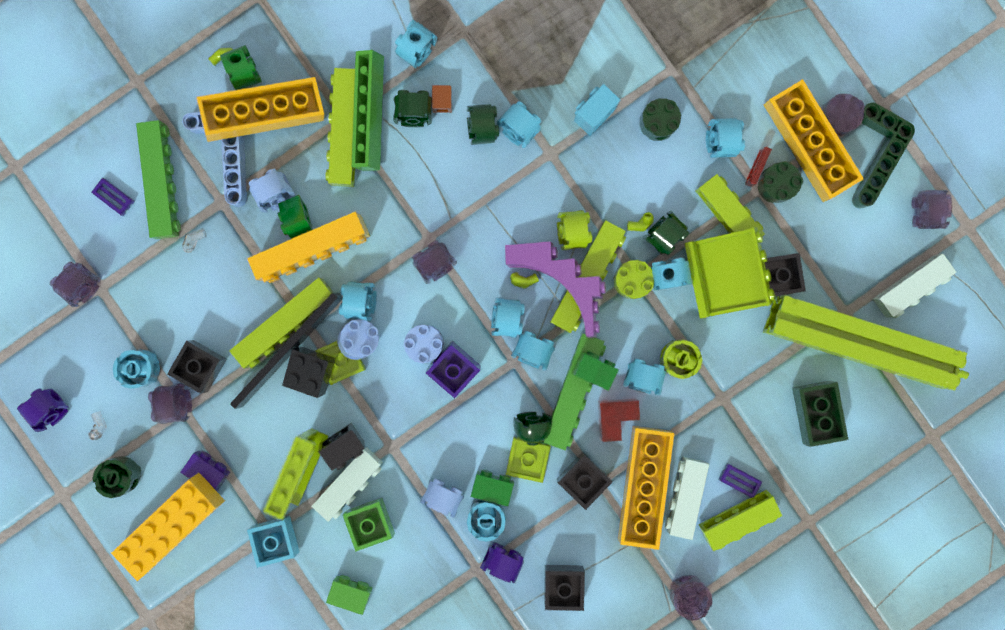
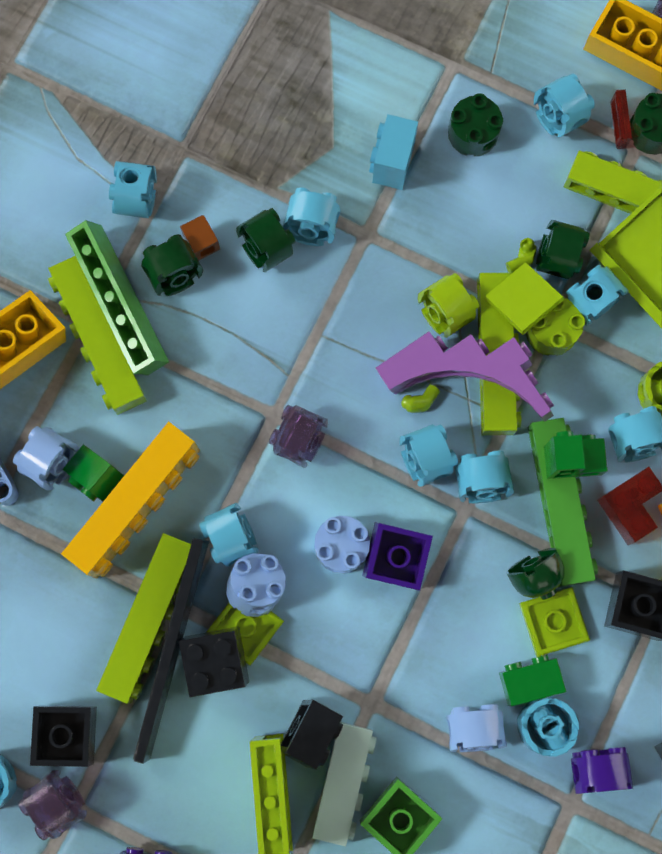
camera: 25 degrees left, 10 degrees down
(622, 253) = (524, 298): none -> lime tile

